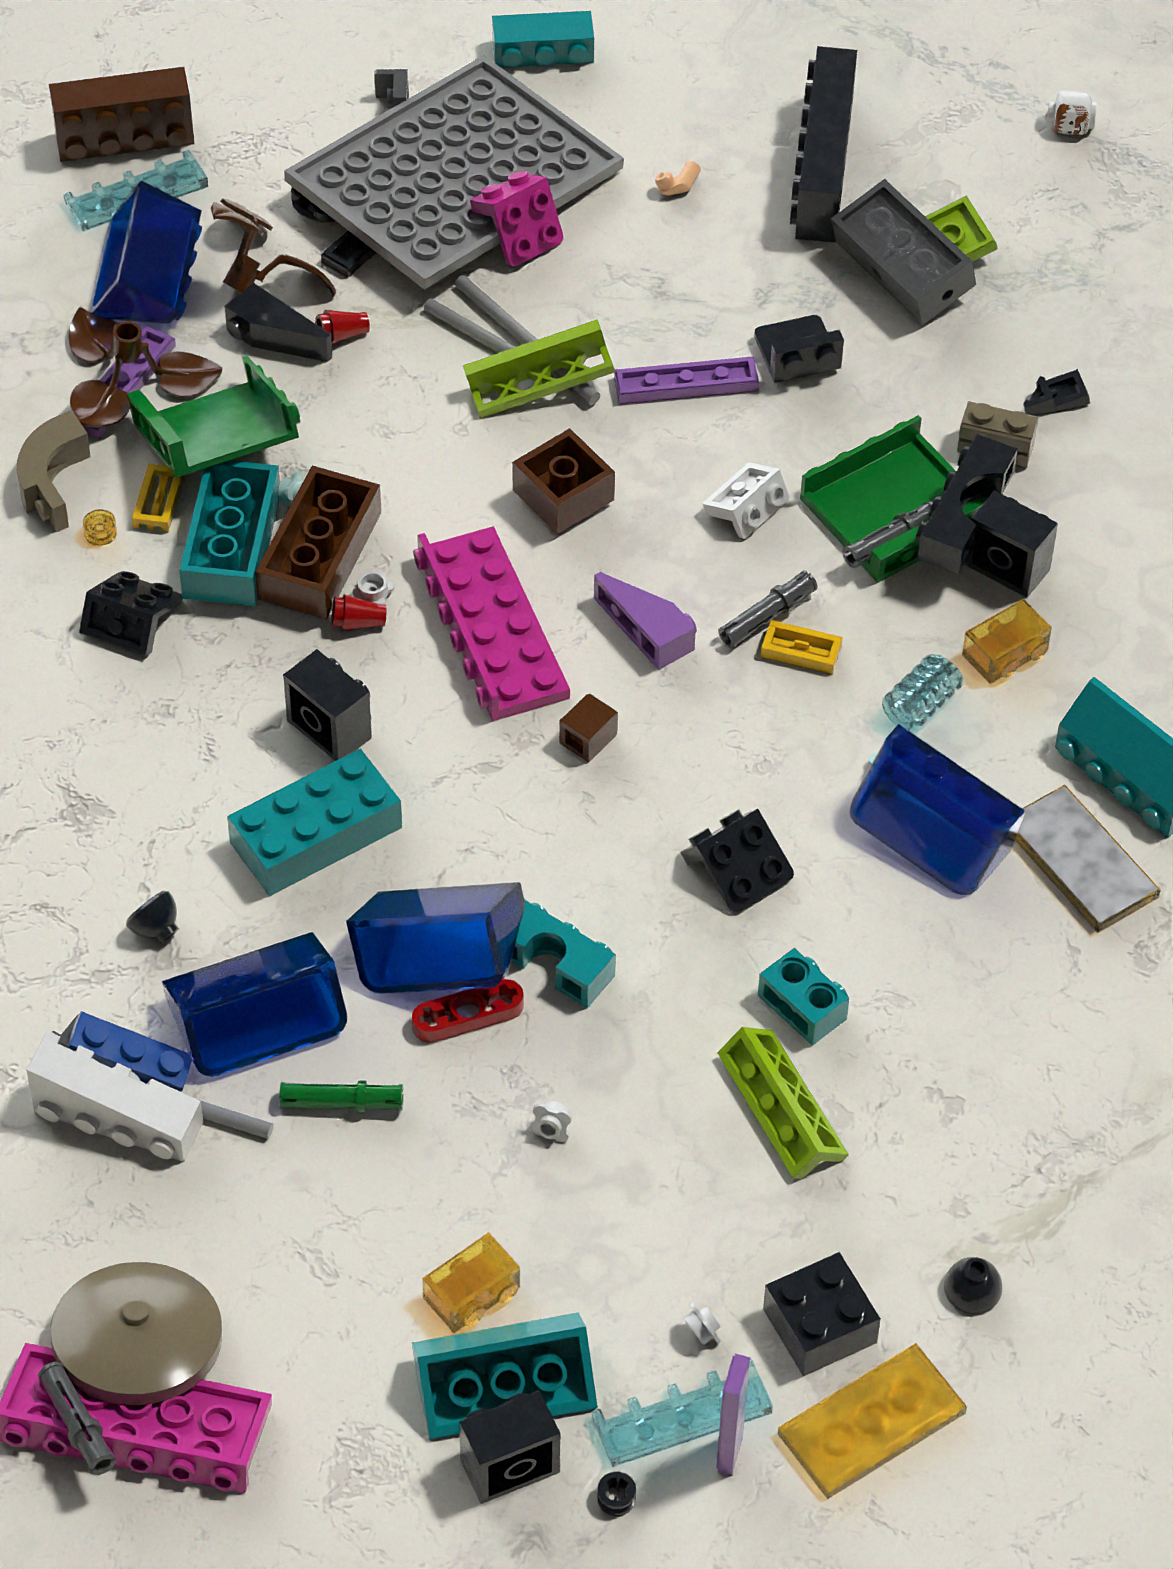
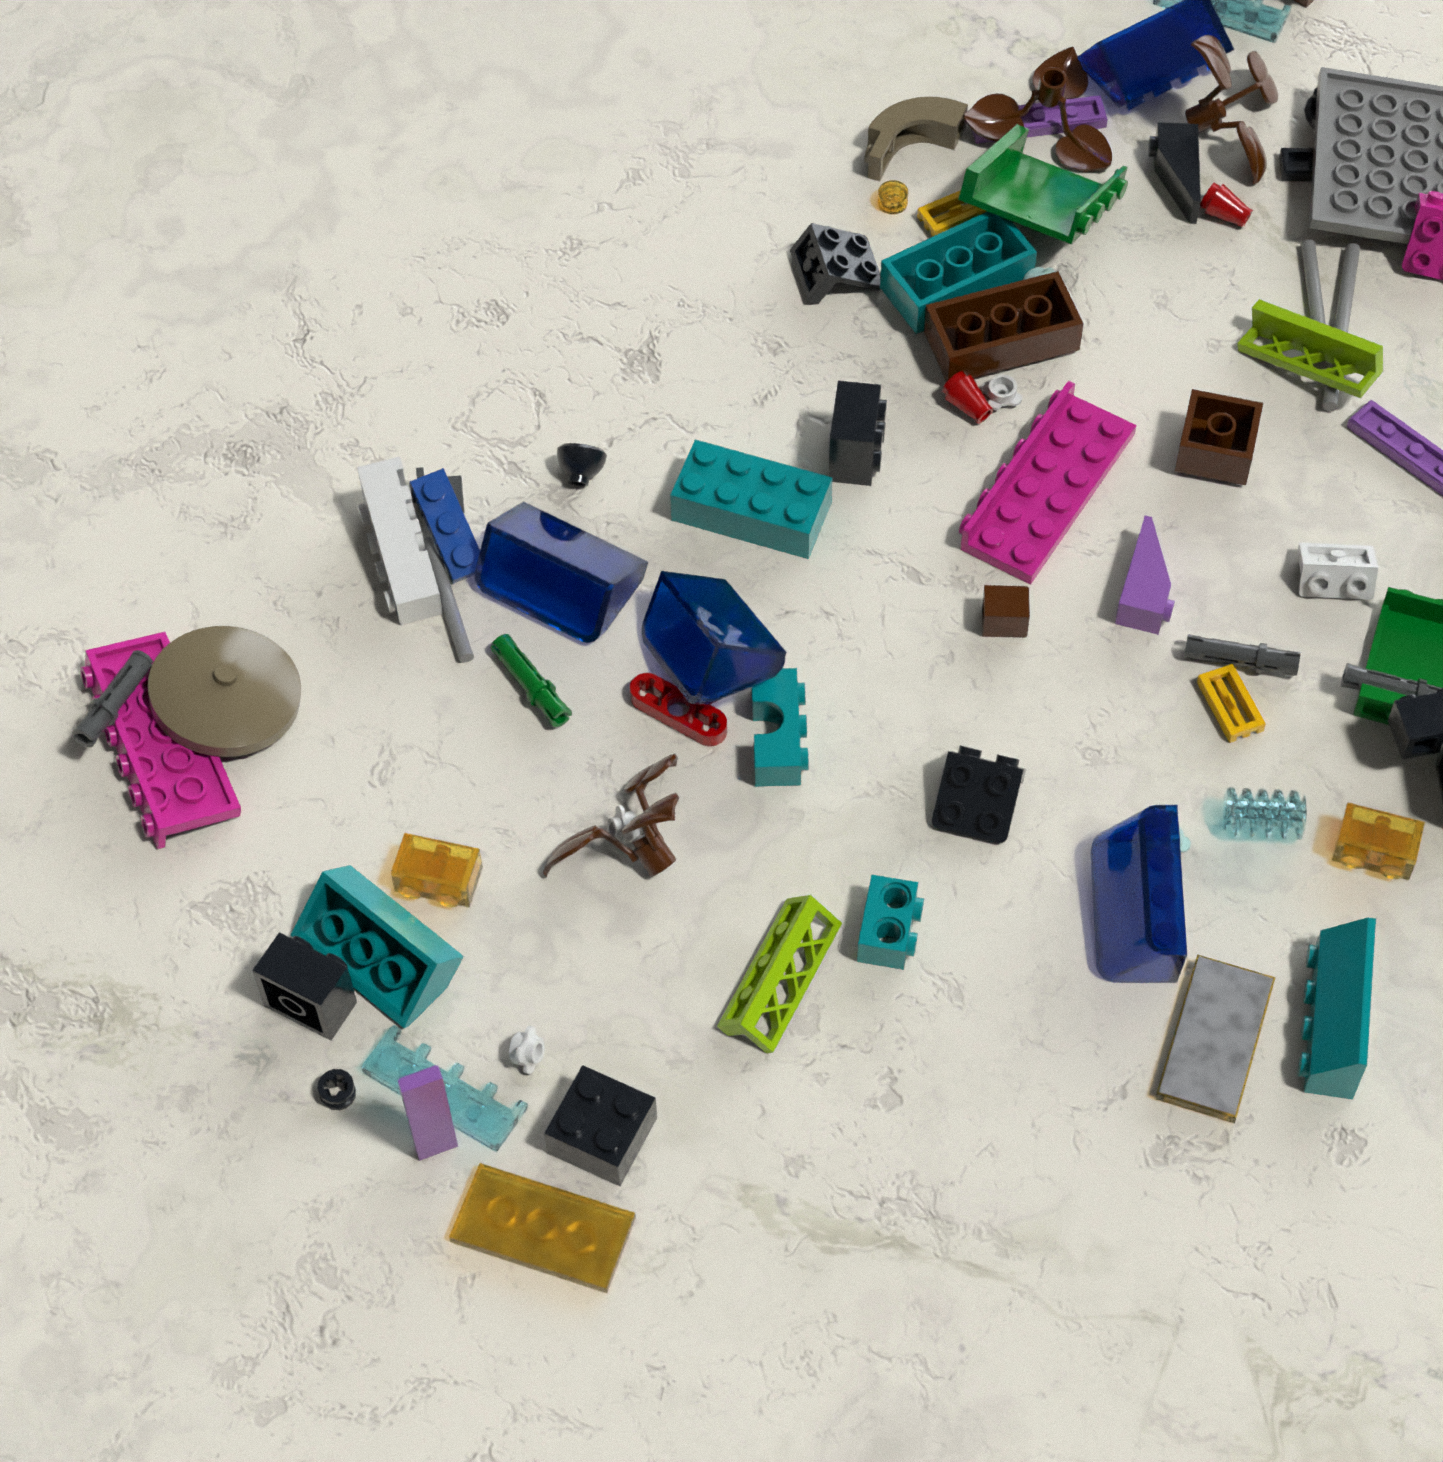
camera: 55 degrees right, 5 degrees up
(594, 1073) = (649, 845): none -> reddish brown plant
(973, 1285) = (727, 1222): black brick -> none

